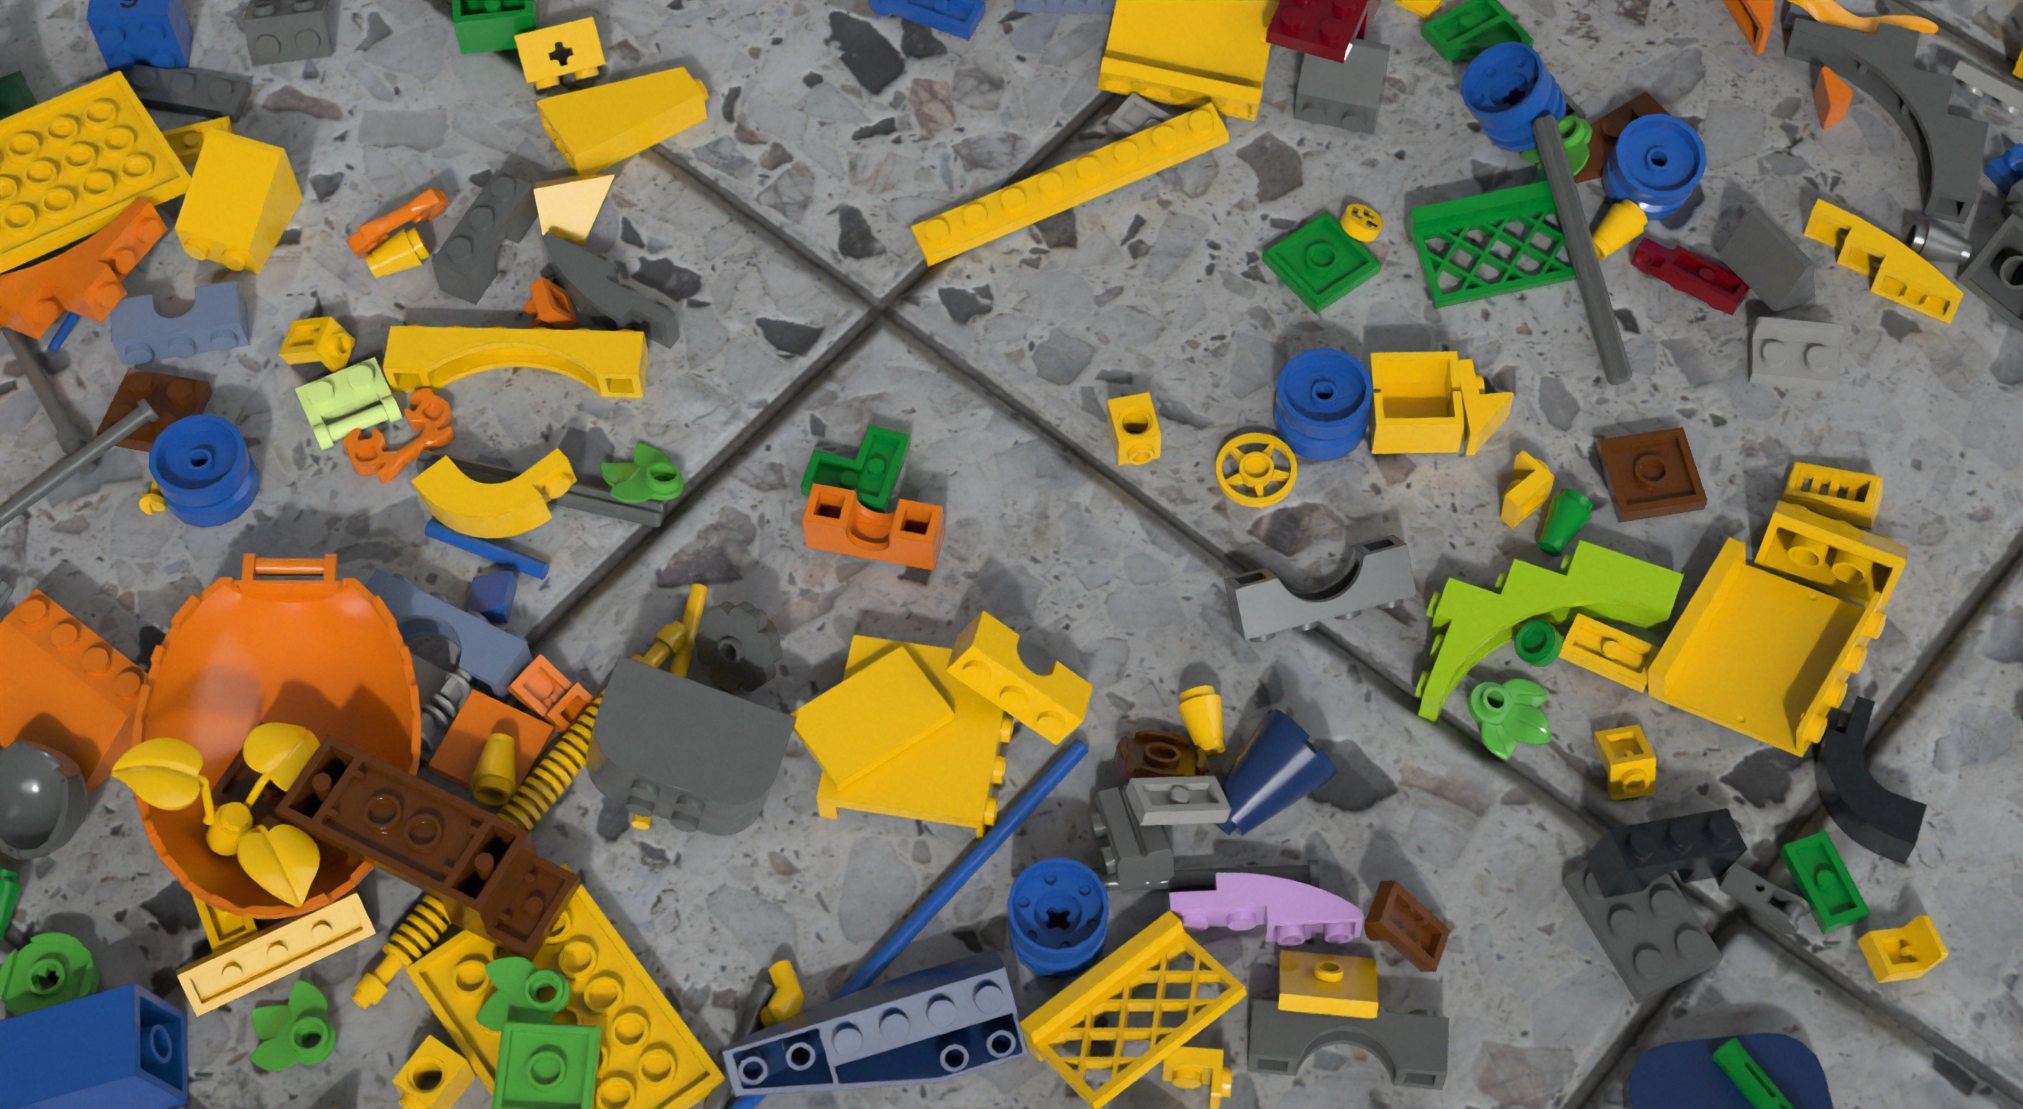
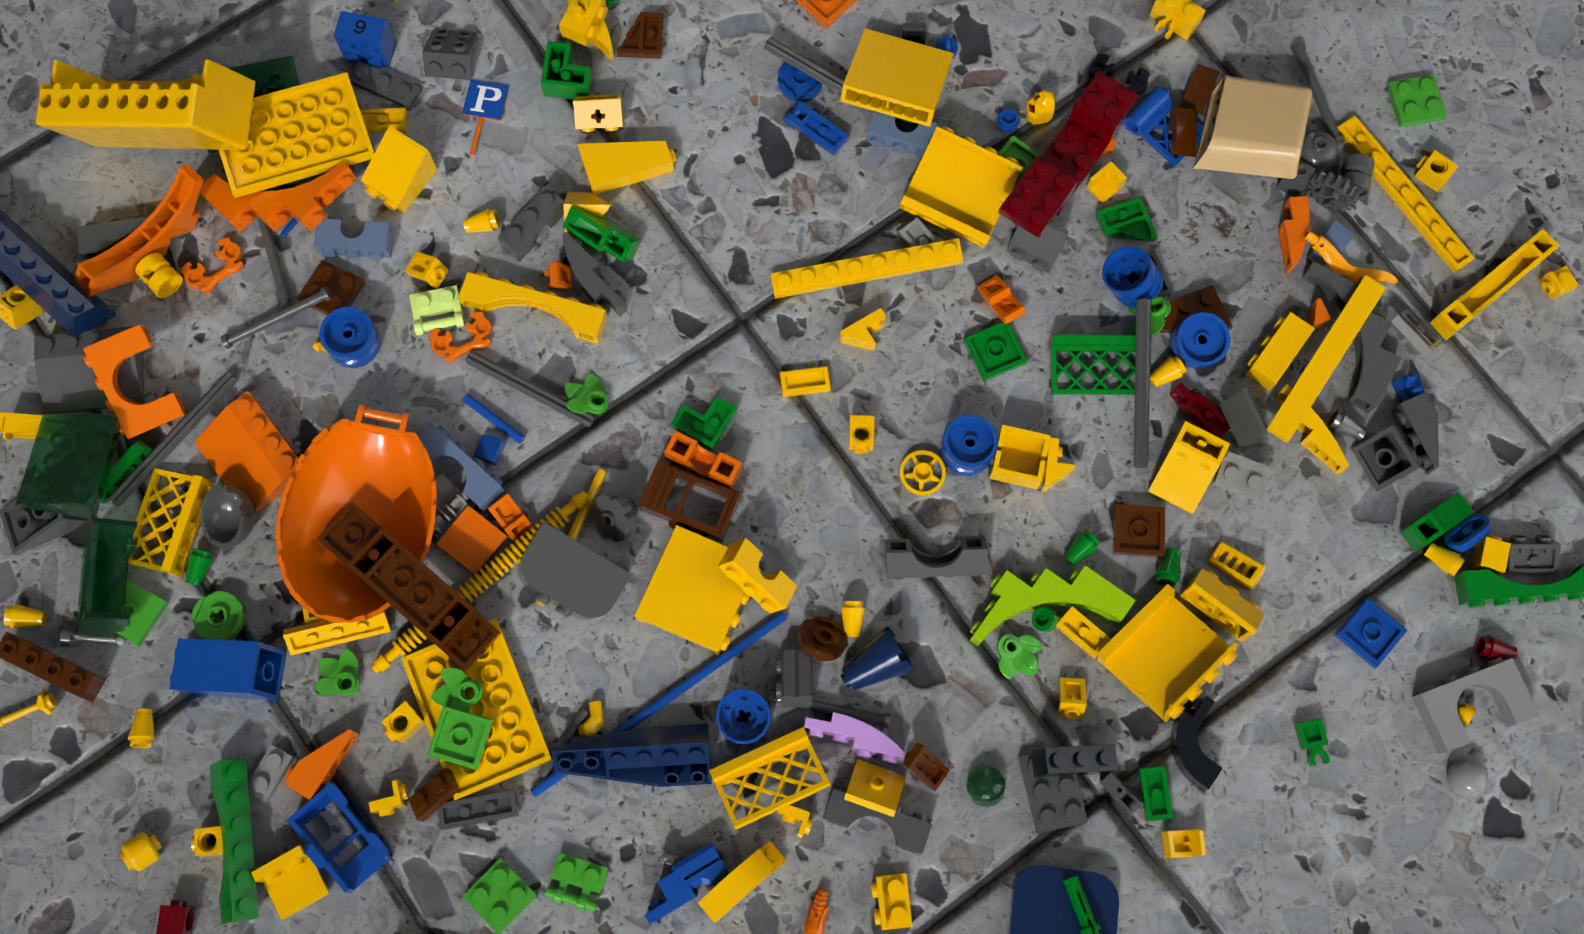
camera: 10 degrees right, 15 degrees up
(167, 777) = (291, 539): yellow plant -> none
(363, 83) = (485, 102): none -> blue piece
(423, 207) = (485, 203): orange helmet -> none
(494, 508) = (498, 400): yellow arch -> none
(495, 772) = (470, 557): yellow cone -> none
(609, 224) = (602, 234): none -> green slope
(807, 583) = (659, 488): none -> reddish brown piece
(870, 717) = (673, 578): yellow tile -> none
(1014, 376) = (805, 381): none -> yellow tile
(1090, 279) = (859, 332): none -> yellow slope
(1178, 800) = (822, 669): light grey plate -> none
(1305, 186) = (1001, 301): none -> orange slope
(1361, 223) = (1024, 332): yellow tile -> none
(1523, 941) = (986, 786): none -> clear green hair
(1528, 491) = (1065, 527): yellow bracket -> none
(1701, 357) = (1188, 467): none -> yellow slope
(1722, 519) = (1169, 568): none -> green cone
(1786, 159) = (1279, 350): none -> yellow brick
(1867, 149) = (1325, 359): none -> yellow tile

